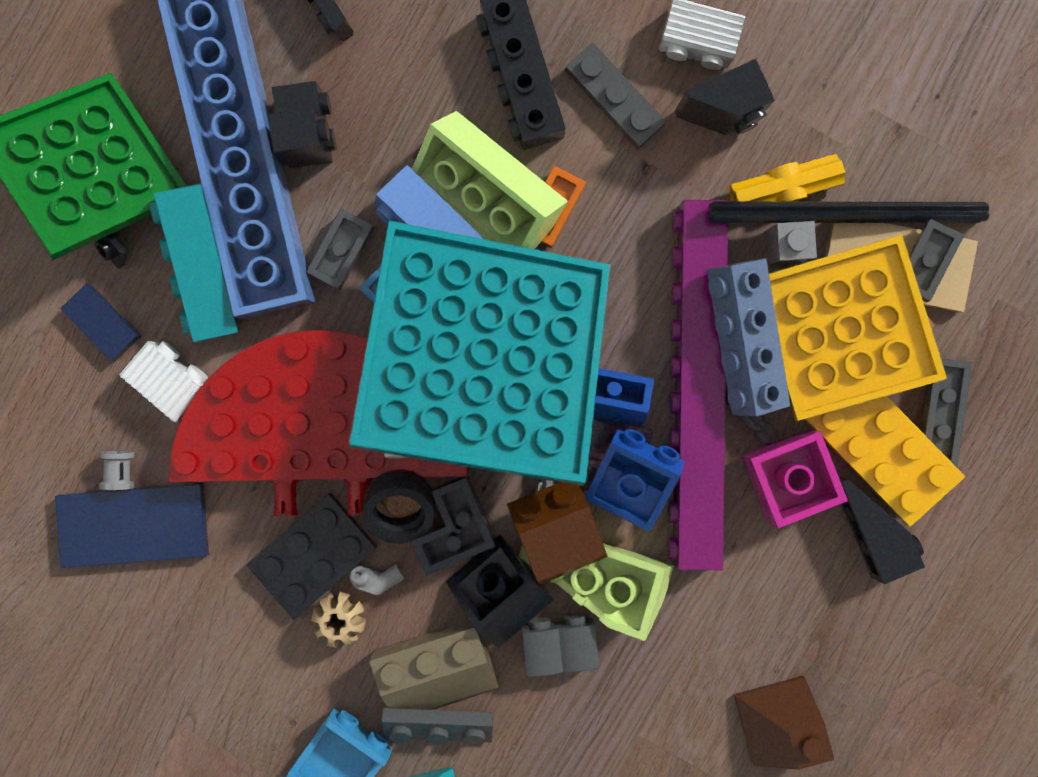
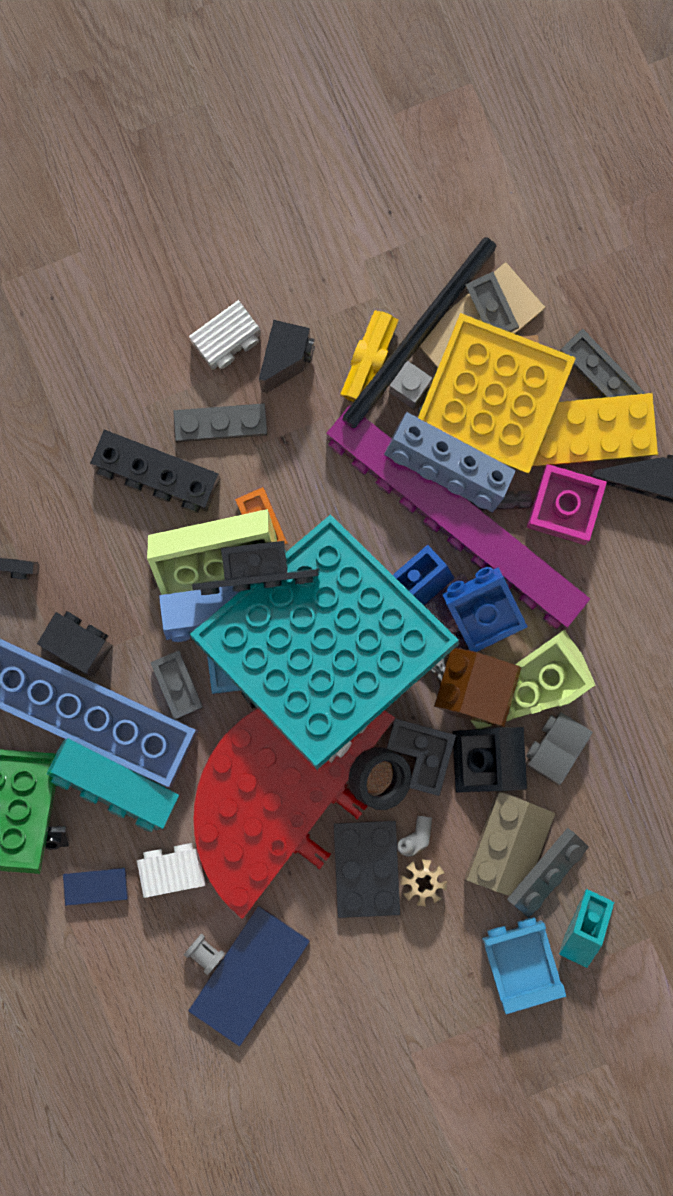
camera: 50 degrees left, 5 degrees down
(503, 229) = (255, 565): none -> black bracket

